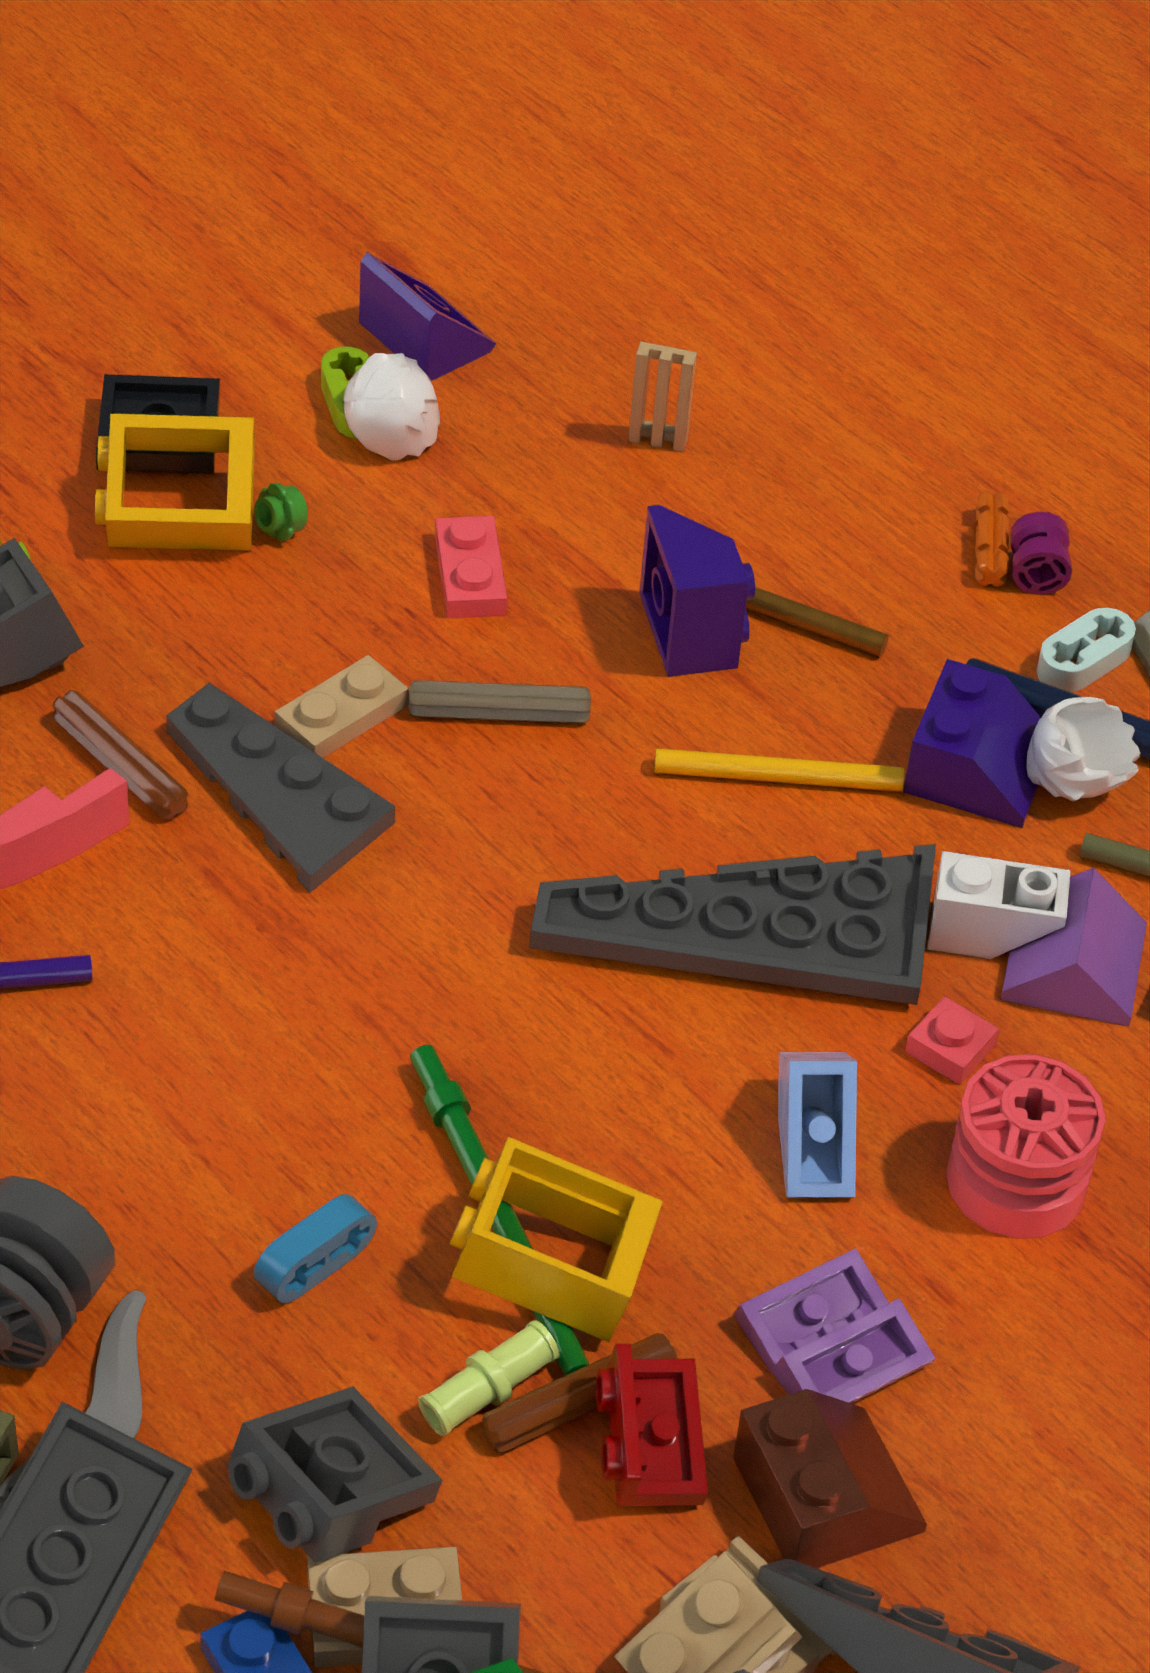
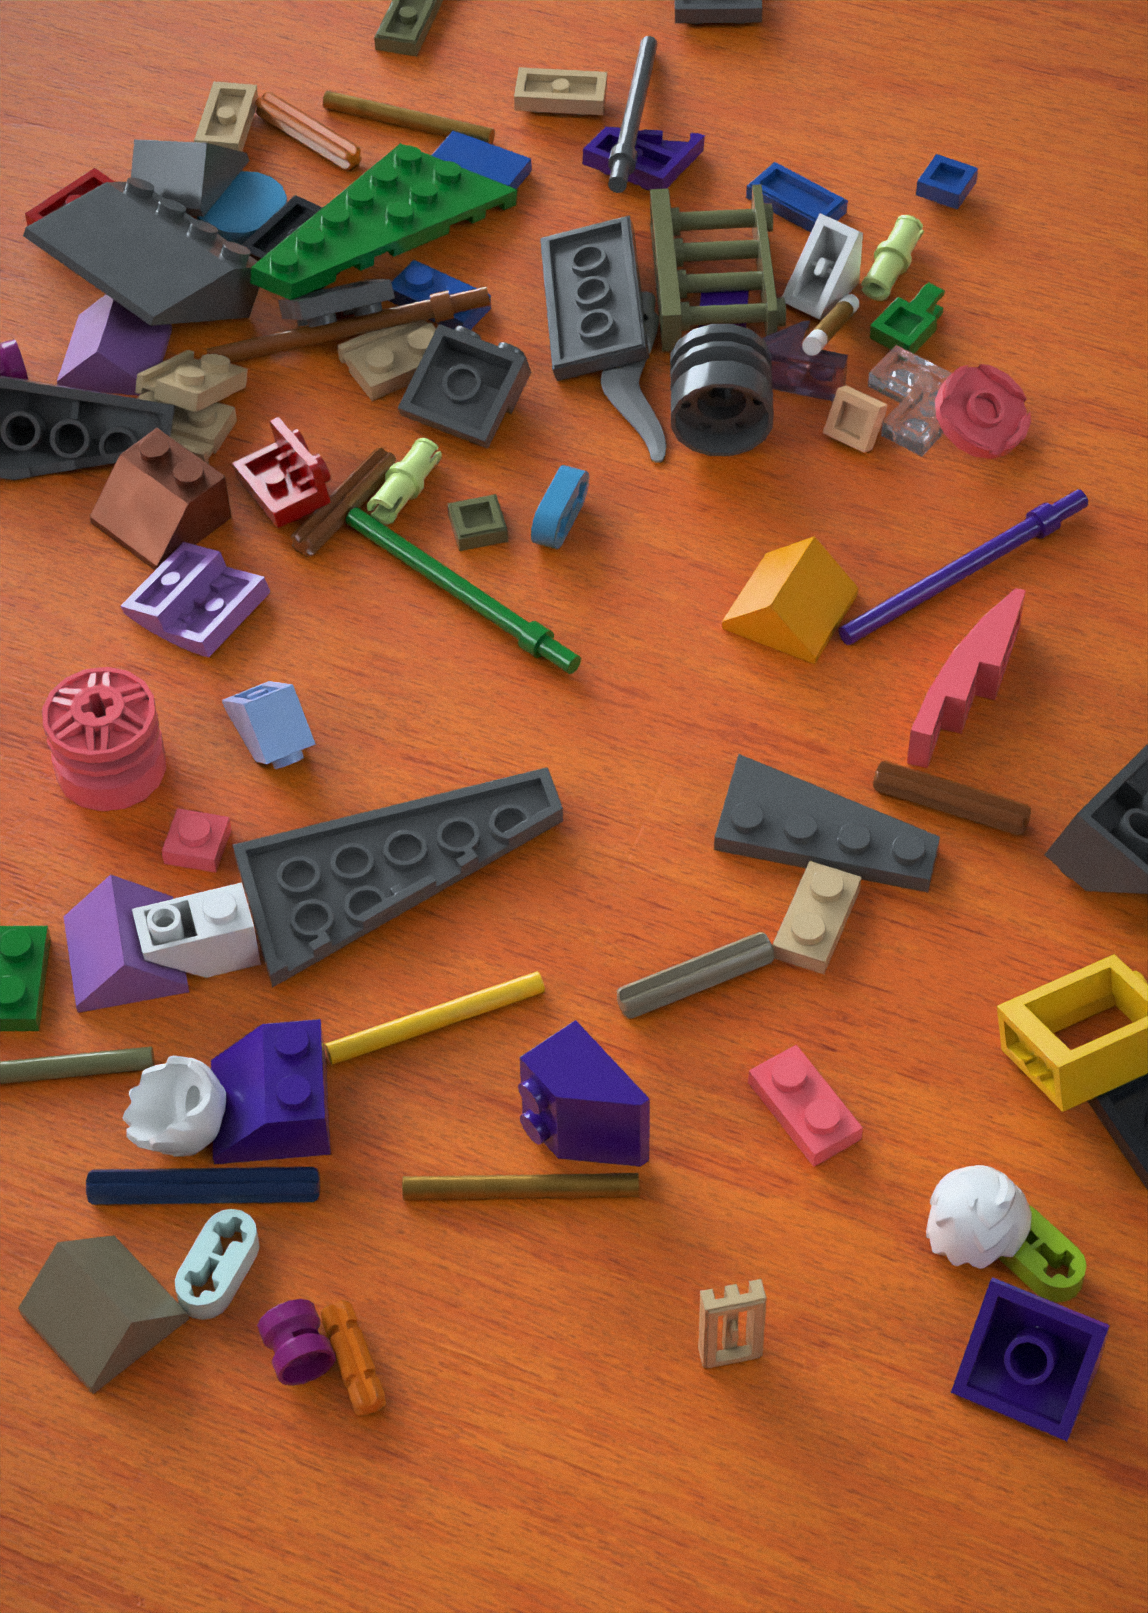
camera: 160 degrees right, 5 degrees up
(128, 1029) = (793, 600): none -> light orange slope
(281, 511) = (995, 1067): bright green plate -> none
(422, 1296) = (477, 522): none -> olive tile
(574, 1200) = (393, 513): yellow window -> none

